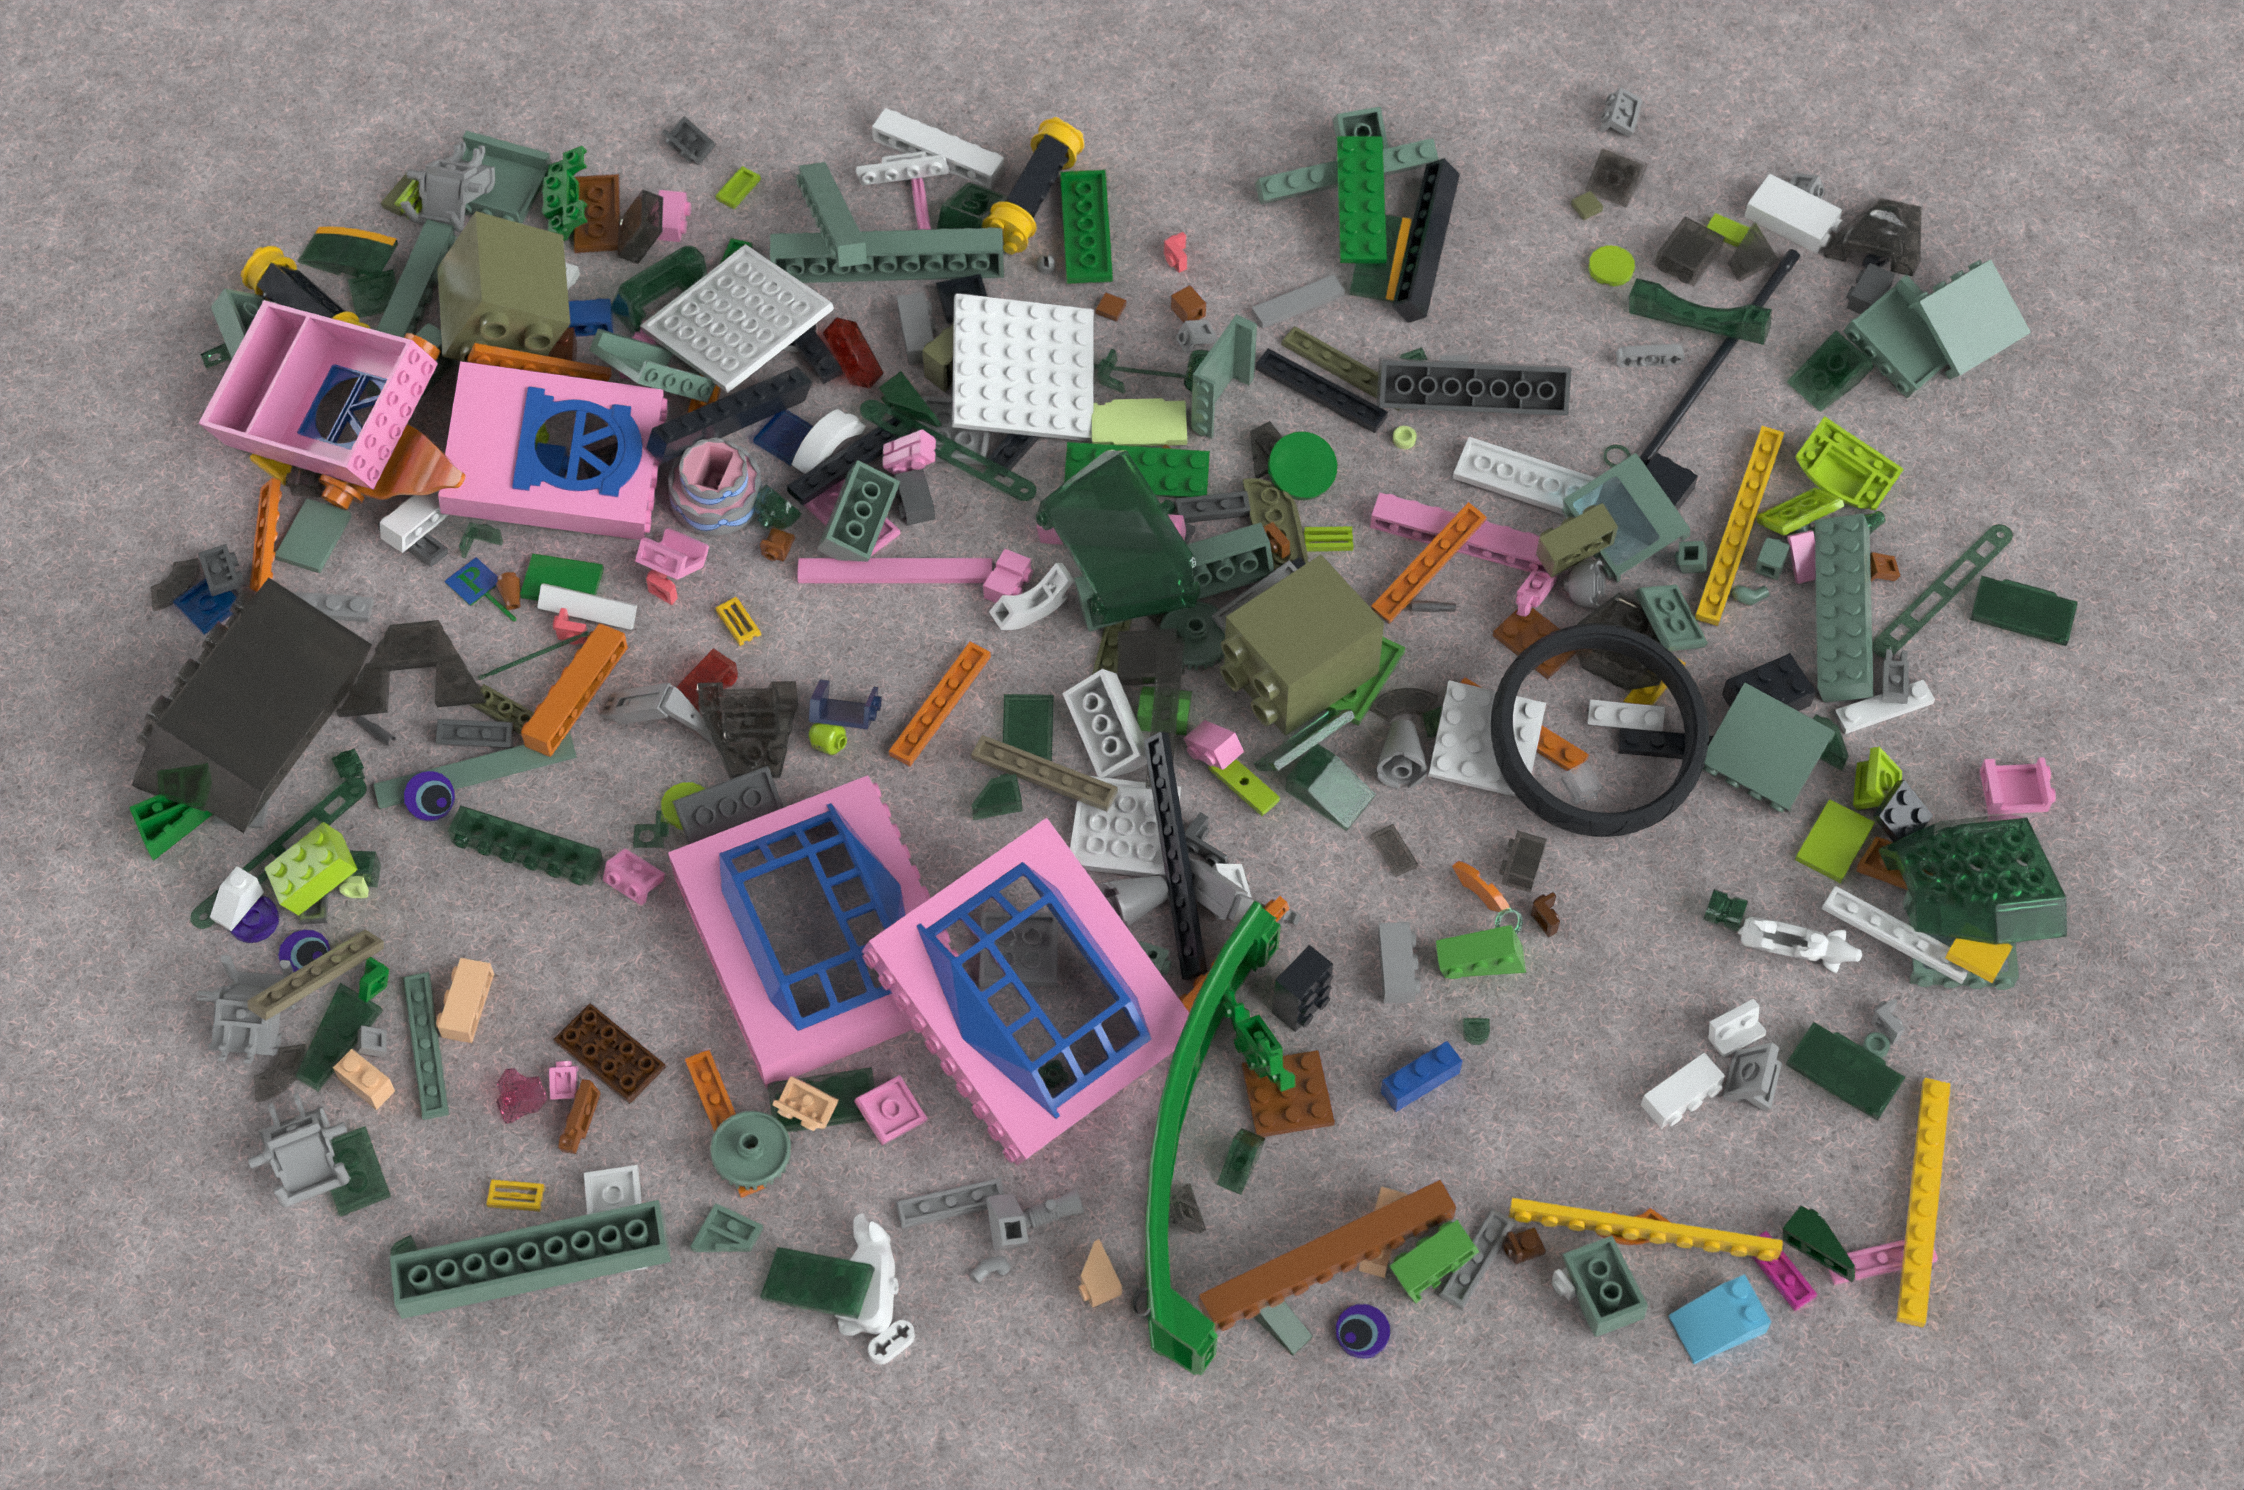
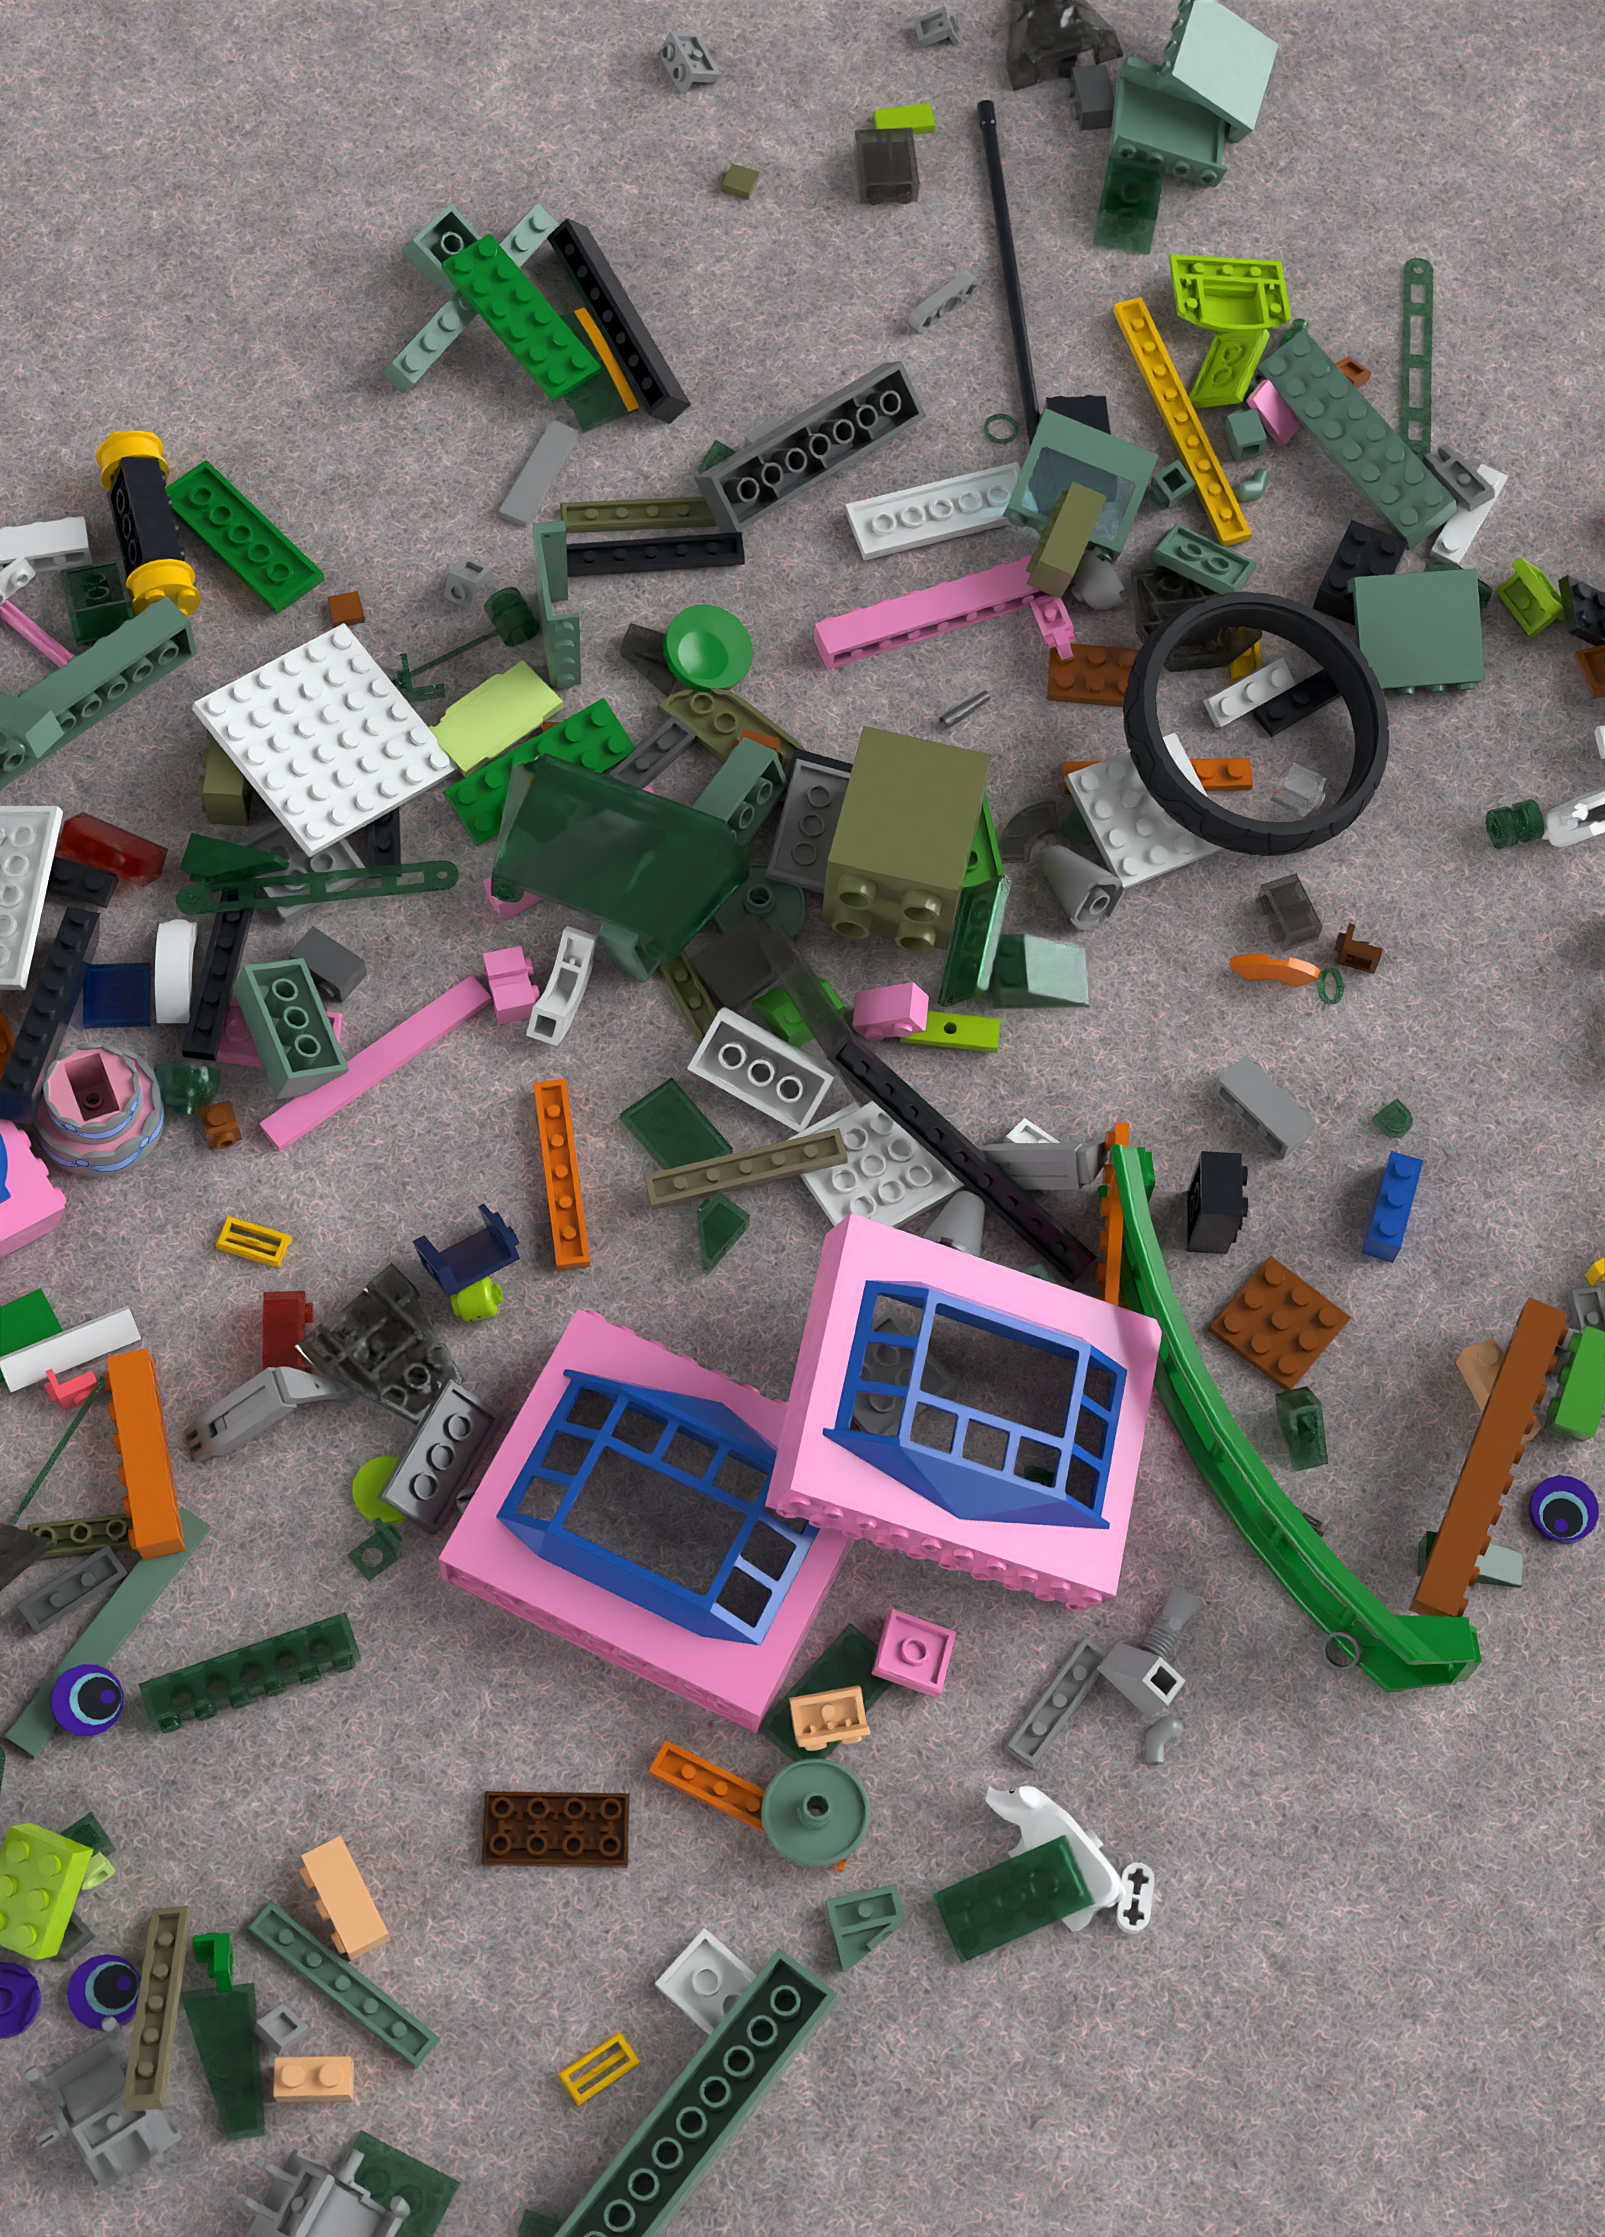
camera: 45 degrees left, 5 degrees up
(280, 1074) = (206, 2149): clear smoke tile -> none
(519, 1095) = (506, 1956): clear pink brick -> none
(563, 1080) = (537, 1899): bright pink bracket -> none
(580, 1117) = (594, 1930): dark orange hinge -> none
(632, 875) = (401, 1614): bright pink bracket -> none
(661, 586) = (136, 1266): coral bracket -> none
(674, 555) = (119, 1218): bright pink panel -> none
(909, 452) = (283, 920): bright pink brick -> none
(915, 324) = (155, 773): light grey brick -> none
(965, 285) = (169, 706): black plate -> none
(1046, 269) = (228, 612): light grey hinge -> none
(1099, 1278) = (1276, 1659): light nougat slope -> none
(1173, 251) = (364, 505): coral bracket -> none
(1188, 304) = (431, 553): dark orange panel -> none
(1194, 837) = (990, 1130): dark grey bracket -> none
(1257, 1043) = (1229, 1296): green bracket -> none
(1328, 534) = (825, 704): lime tile -> none
(1394, 850) = (1154, 993): clear smoke tile -> none
(1404, 437) = (777, 549): yellowish green tile -> none
(1428, 563) = (931, 656): orange plate -> none
(1481, 953) = (1337, 1038): bright green wedge -> none
(1611, 265) = (820, 230): lime tile -> none
(1616, 176) = (745, 131): clear smoke slope -> none
(1656, 302) = (909, 239): clear green arch -> none
(1752, 254) = (948, 131): clear smoke wing -> none
(1793, 213) = (951, 62): white brick -> none
(1834, 841) = (1542, 683): lime tile -> none
(2024, 610) = (1507, 331): clear green piece -> none

